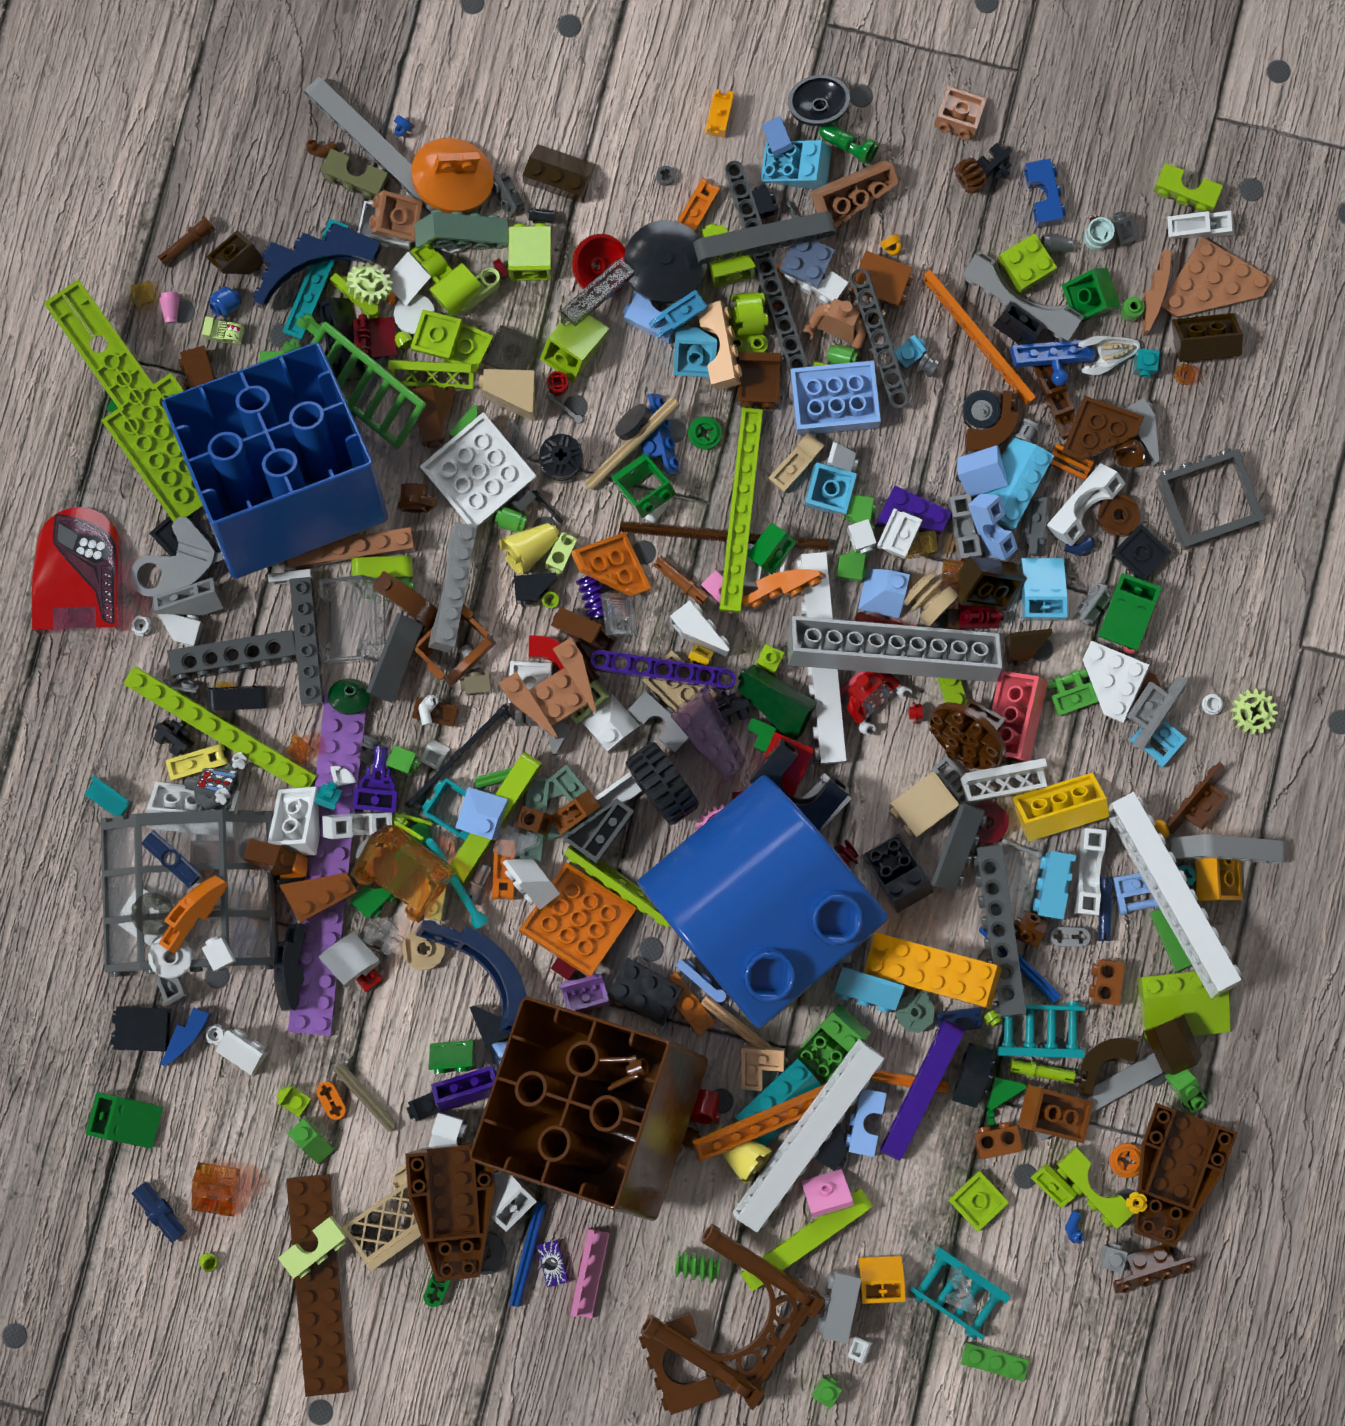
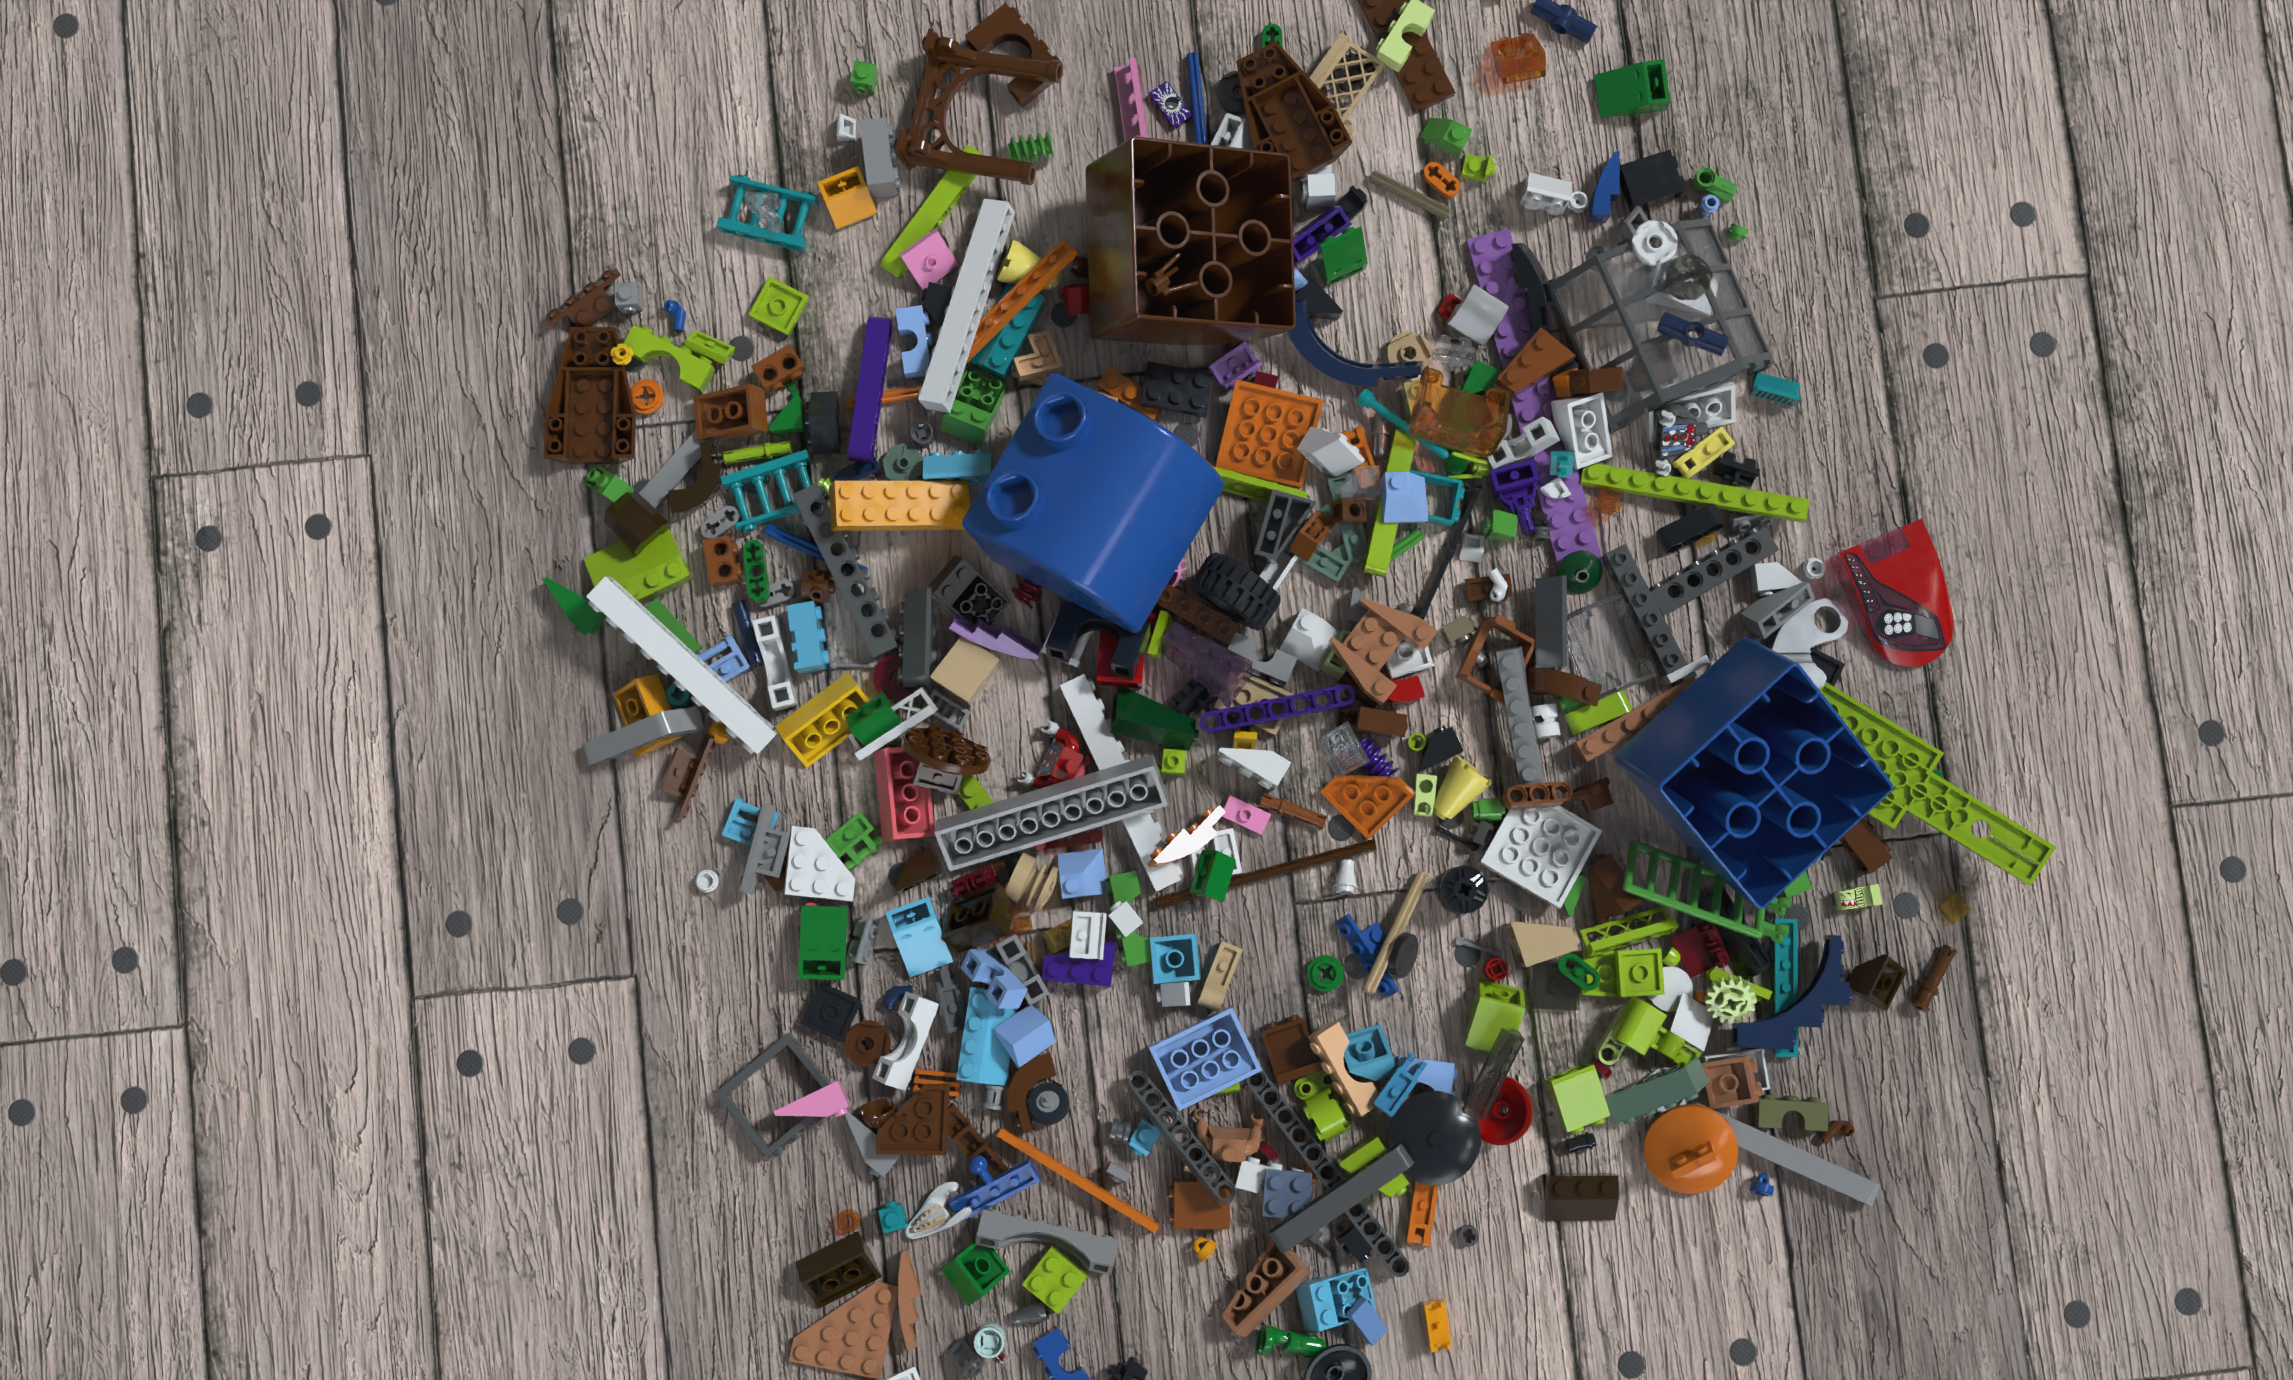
camera: 160 degrees right, 0 degrees up
(83, 952) = (1737, 232): none -> bright green plate
(85, 1002) = (1716, 185): none -> bright green piece
(94, 985) = (1708, 205): none -> light blue pin
(169, 304) = (1921, 903): bright pink cone -> none
(195, 904) = (1651, 296): orange slope -> none
(218, 953) = (1609, 259): white brick -> none
(224, 301) = (1868, 928): blue head -> none
(433, 577) = (1549, 727): none -> white wheel
(456, 514) = (1546, 791): none -> dark orange beam
(489, 353) = (1579, 971): none -> green plate
(509, 202) = (1619, 1145): dark grey hinge -> none
(643, 467) = (1383, 900): green window -> none
(700, 777) = (1201, 616): none -> reddish brown bracket
(740, 776) = (1163, 624): none -> lime tile
(741, 510) = (1259, 904): lime plate -> none
(763, 731) = (1151, 687): green piece -> none
(808, 303) = (1268, 1151): none -> dark red tile
(842, 354) = (1213, 1107): bright green brick -> none
(883, 820) = (1001, 640): none -> medium lavender slope
(891, 1032) = (922, 430): none -> flat silver wheel
(915, 712) = (1006, 762): red plate -> none
(942, 331) = (1118, 1173): none -> light grey plate
(970, 175) = (1148, 1354): reddish brown gear -> none
(994, 1361) = (711, 163): bright green plate -> none
(1018, 324) = (1041, 1208): black brick -> none
(1021, 790) = (872, 719): none -> green panel
(1085, 968) = (762, 579): none -> green beam
(1095, 1014) = (717, 519): none -> light grey beam
(1128, 313) = (930, 1263): bright green brick -> none
(1176, 475) = (821, 1103): none -> bright pink slope
(1252, 989) = (576, 608): none -> green slope
(1262, 715) = (661, 897): yellowish green gear -> none

